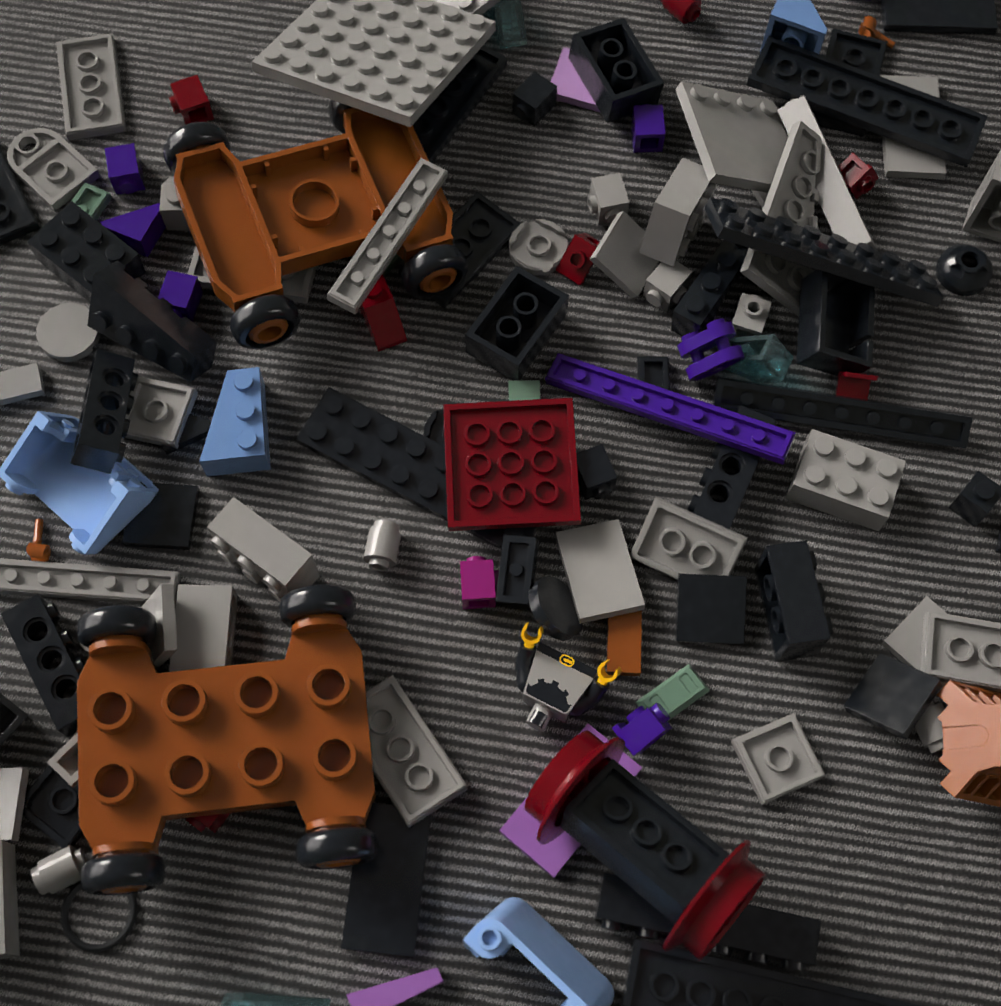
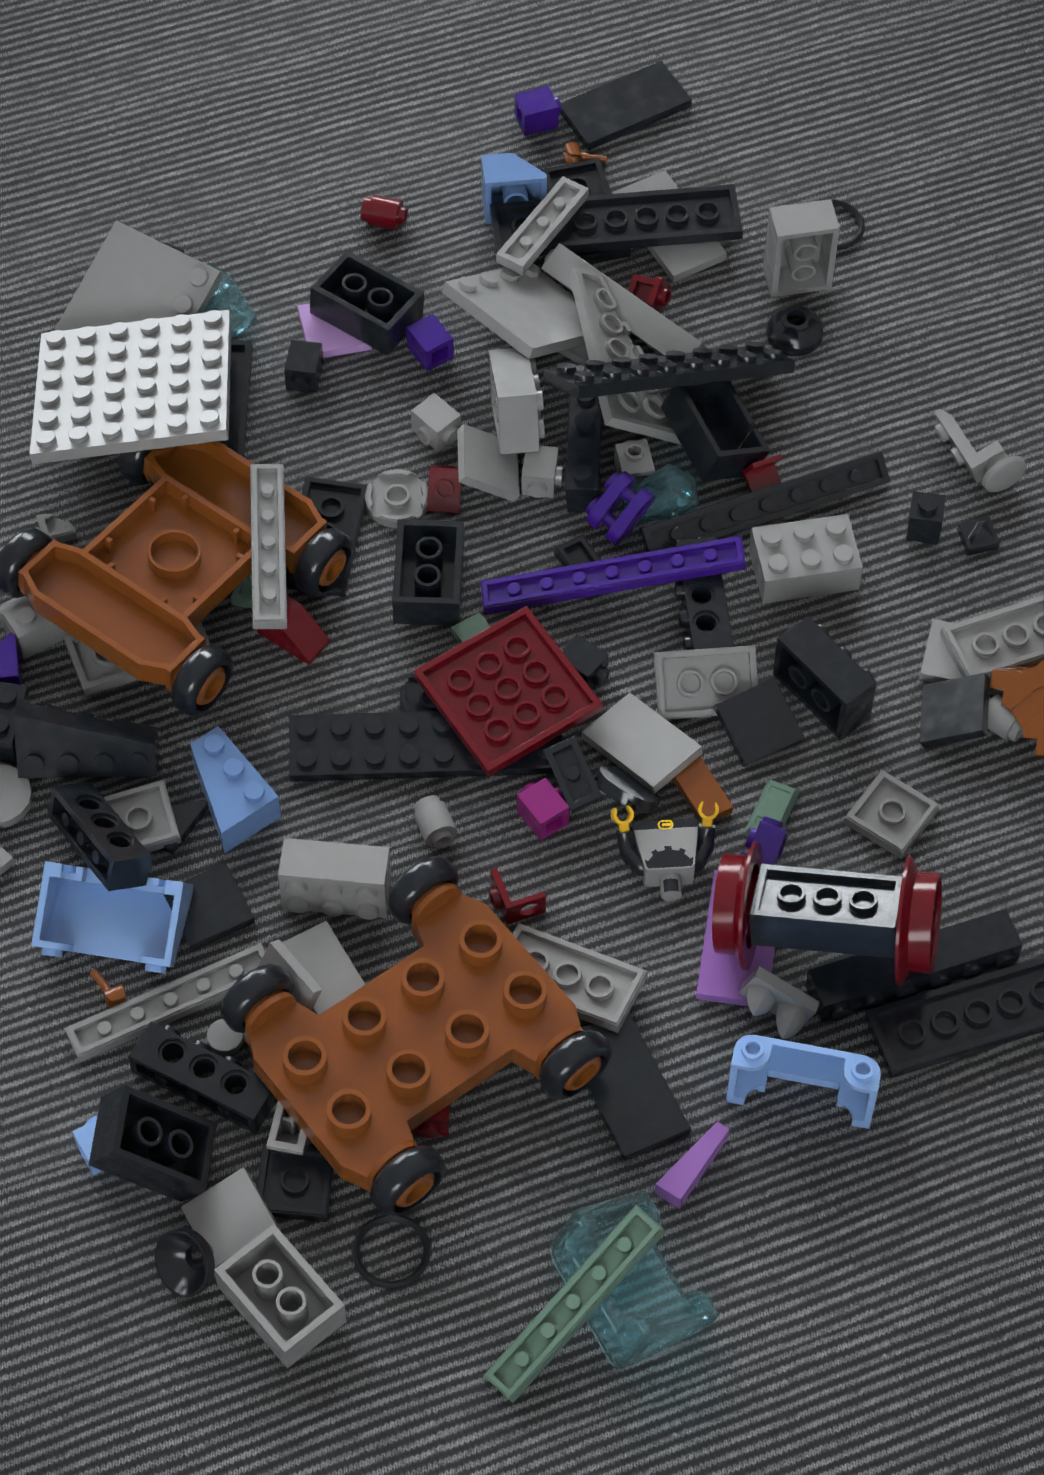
camera: 30 degrees left, 10 degrees down
(58, 870) = (335, 1232): light grey brick -> none
(182, 292) = (87, 698): dark purple brick -> none
(258, 137) = (56, 528): none -> light grey tile
(390, 646) = (511, 910): none -> dark red bracket
(569, 897) = (770, 993): none -> light grey tile
(798, 73) = (542, 225): none -> light grey plate

